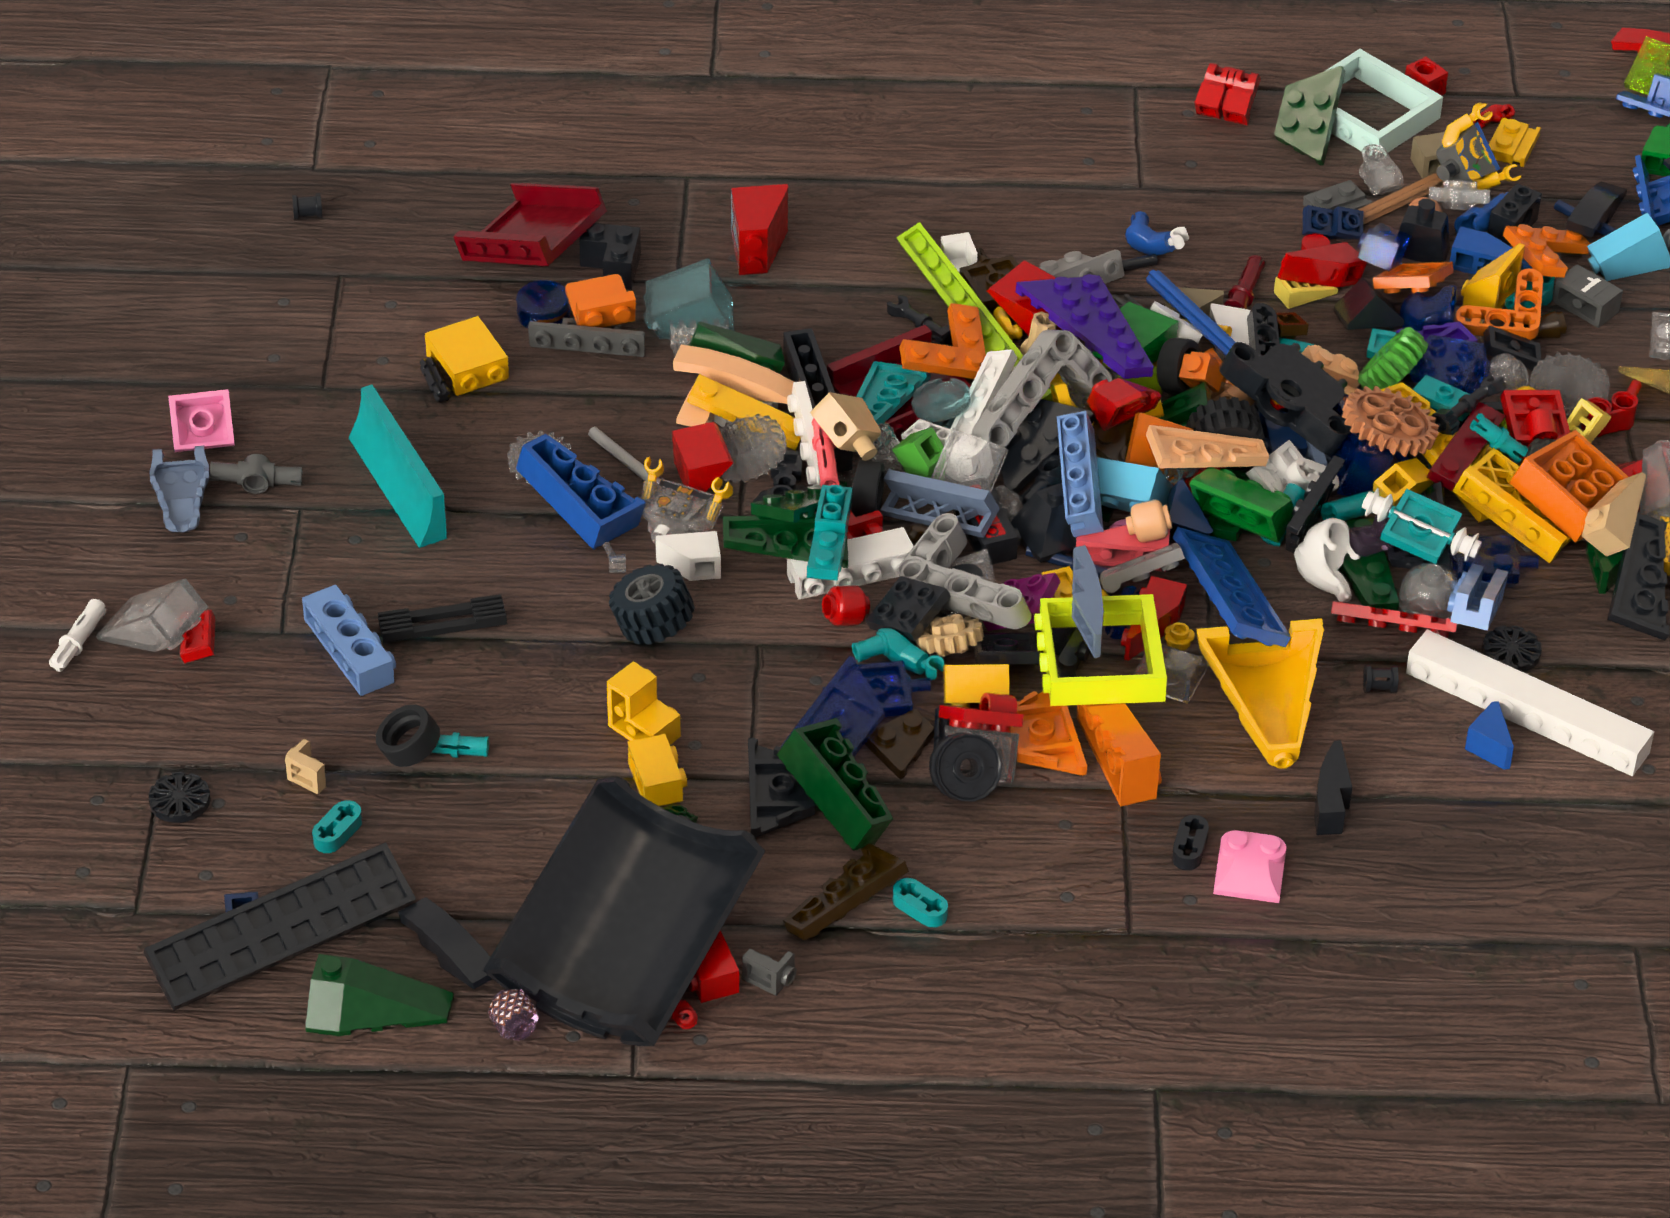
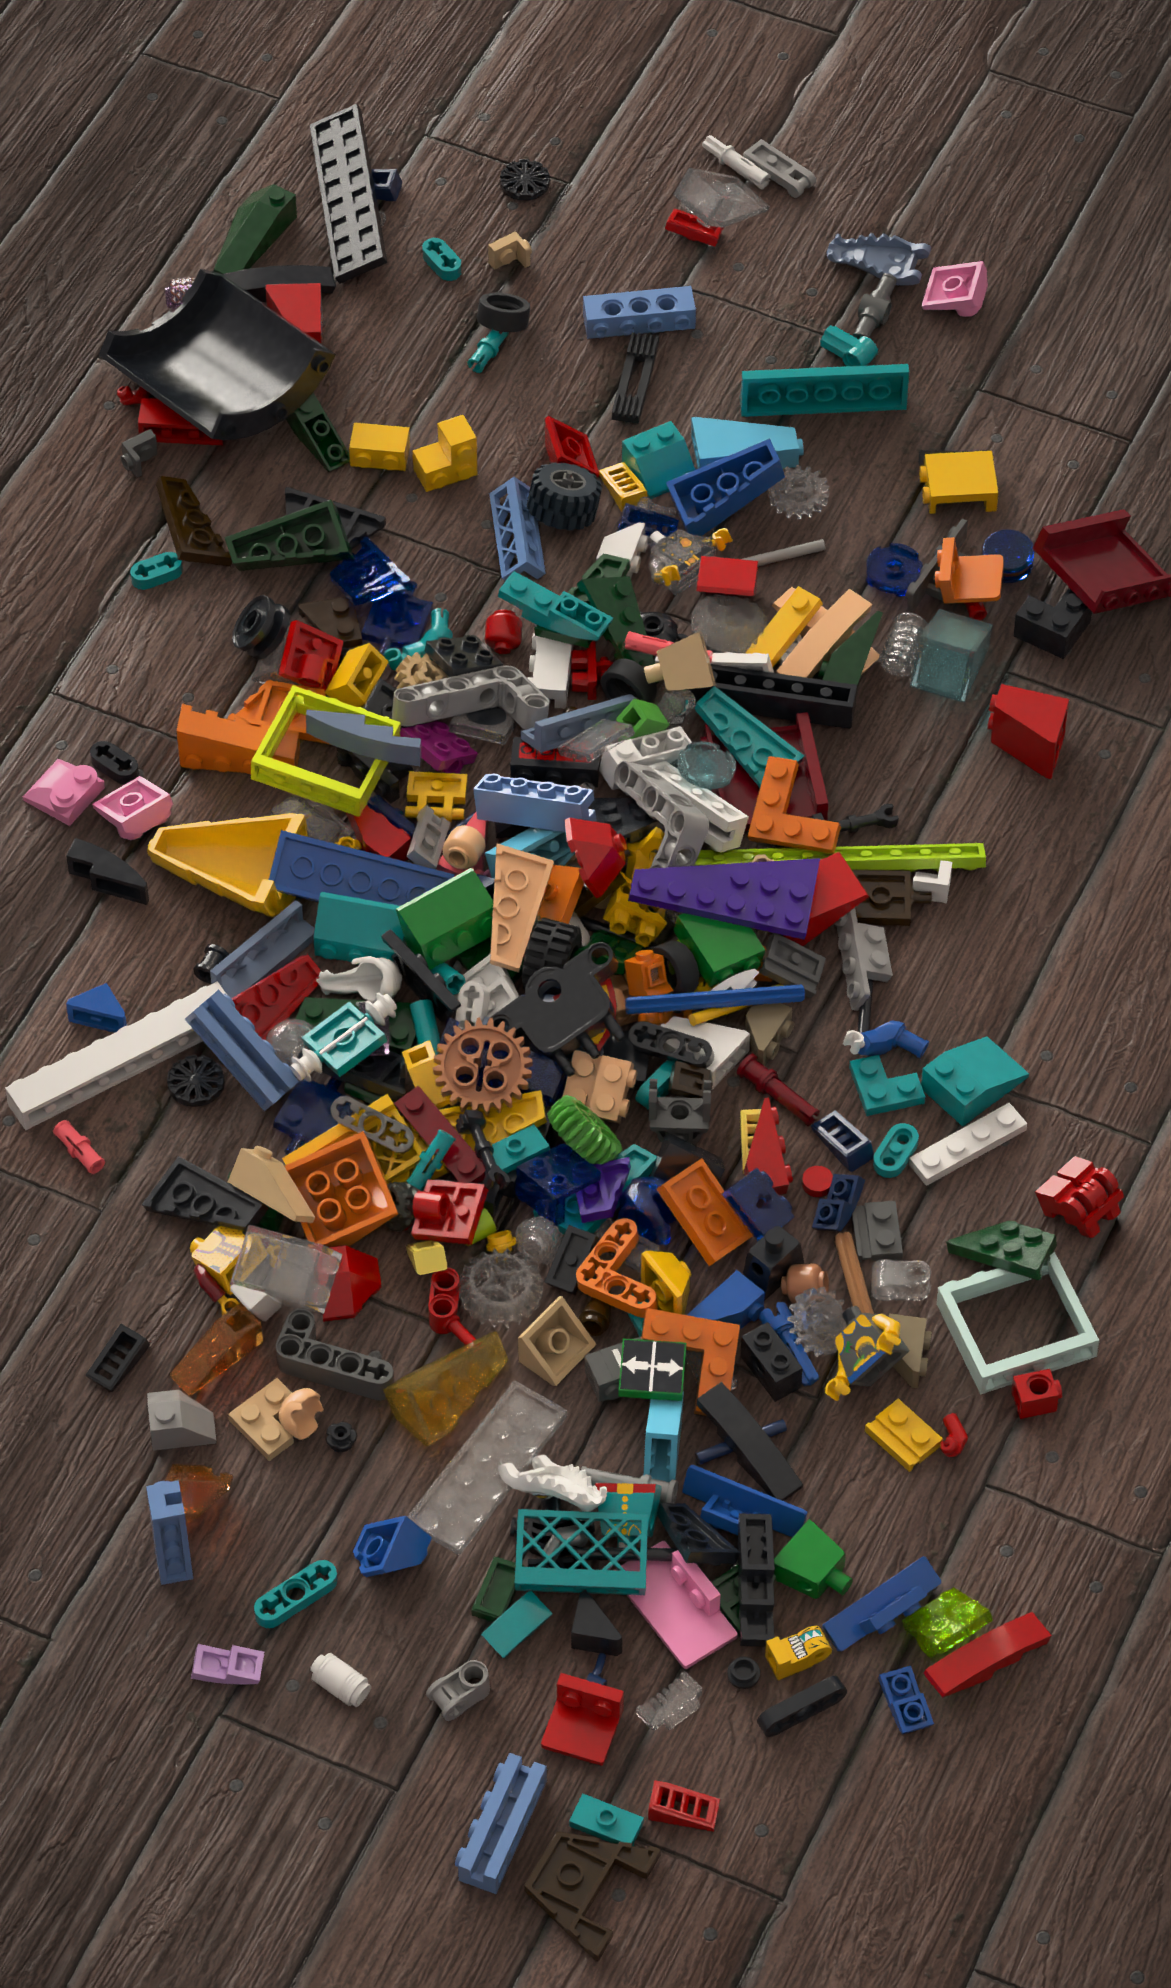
camera: 115 degrees right, 10 degrees up
(72, 600) = (780, 168): none -> light grey plate
(321, 474) = (852, 350): none -> teal piece
(503, 514) = (720, 438): none -> medium azure slope
(506, 878) = (299, 305): none -> red slope
(549, 568) = (657, 457): none -> teal slope
(581, 636) = (568, 446): none -> red slope
(590, 383) = (893, 581): none -> clear blue plate
(604, 569) = (617, 492): none -> yellow slope
(638, 550) = (632, 515): none -> clear blue slope
(696, 634) = (522, 524): none -> medium blue fence
(1151, 184) = (971, 1078): none -> teal slope
(1202, 234) = (884, 1094): none -> teal plate
(1213, 176) = (967, 1144): none -> white plate
(1241, 796) = (135, 808): none -> bright pink slope
(1254, 208) = (893, 1152): none -> teal plate
(1265, 225) = (853, 1155): none -> dark blue slope
(1278, 576) = (353, 928): none -> teal slope
(1326, 326) = (692, 1111): none -> dark grey piece
(1356, 651) = (263, 953): none -> sand blue fence
(1500, 474) = (355, 1107): none -> dark grey beam
(1590, 257) = (652, 1369): none -> black tile
(1595, 341) = (554, 1343): none -> tan slope
(1644, 698) = (79, 1147): none -> coral pin

